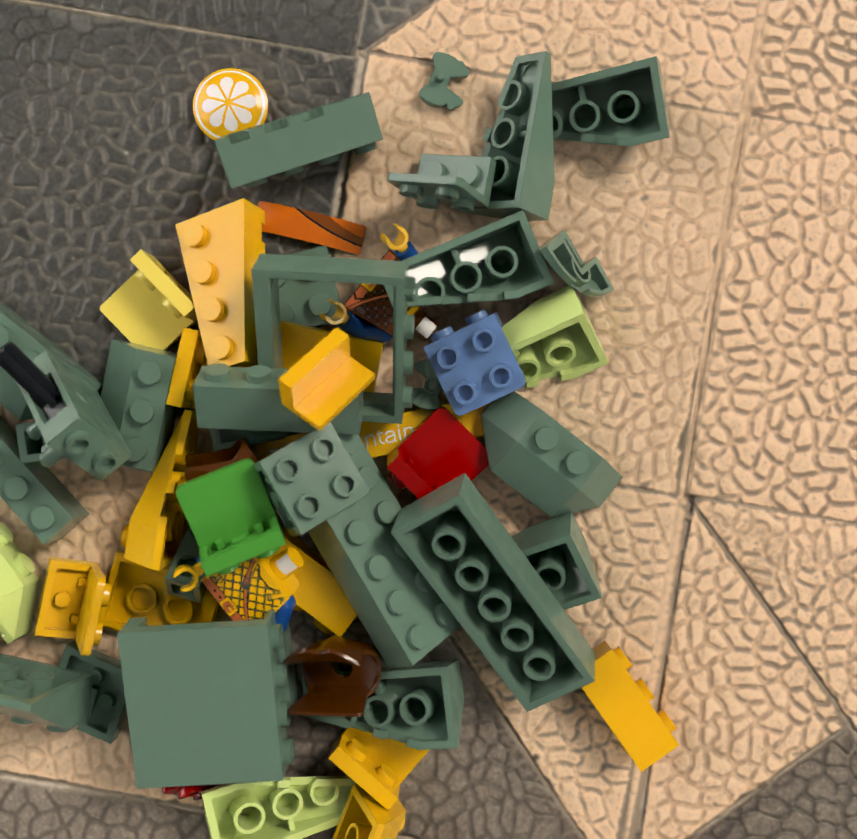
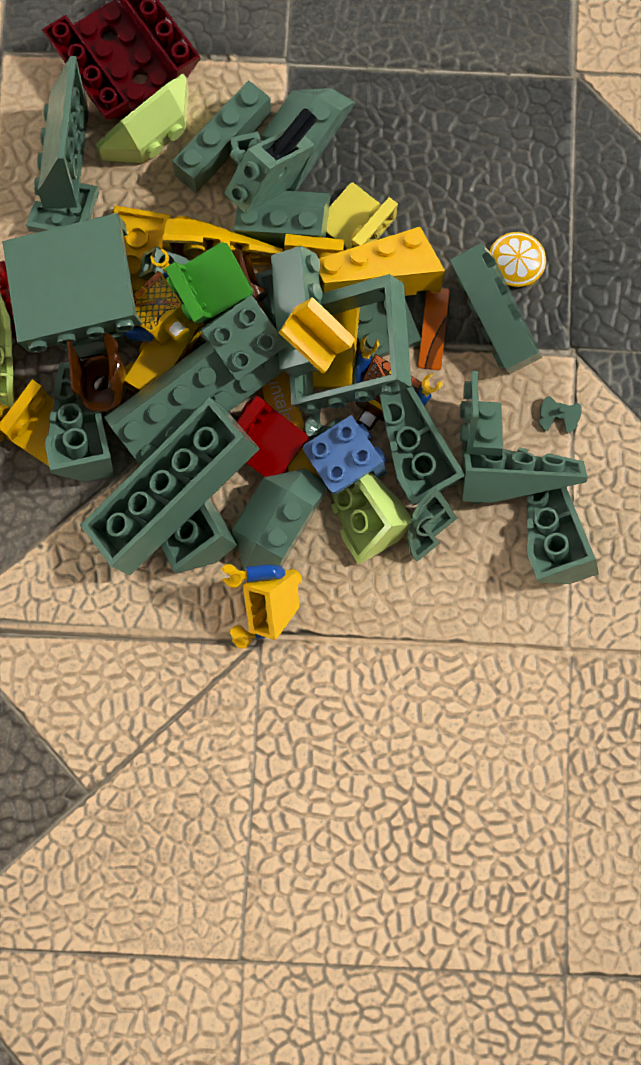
camera: 75 degrees right, 10 degrees down
(72, 602) = (130, 184): yellow bracket -> none
(627, 708) = (89, 606): yellow brick -> none
(652, 484) = (269, 600): none -> yellow torso

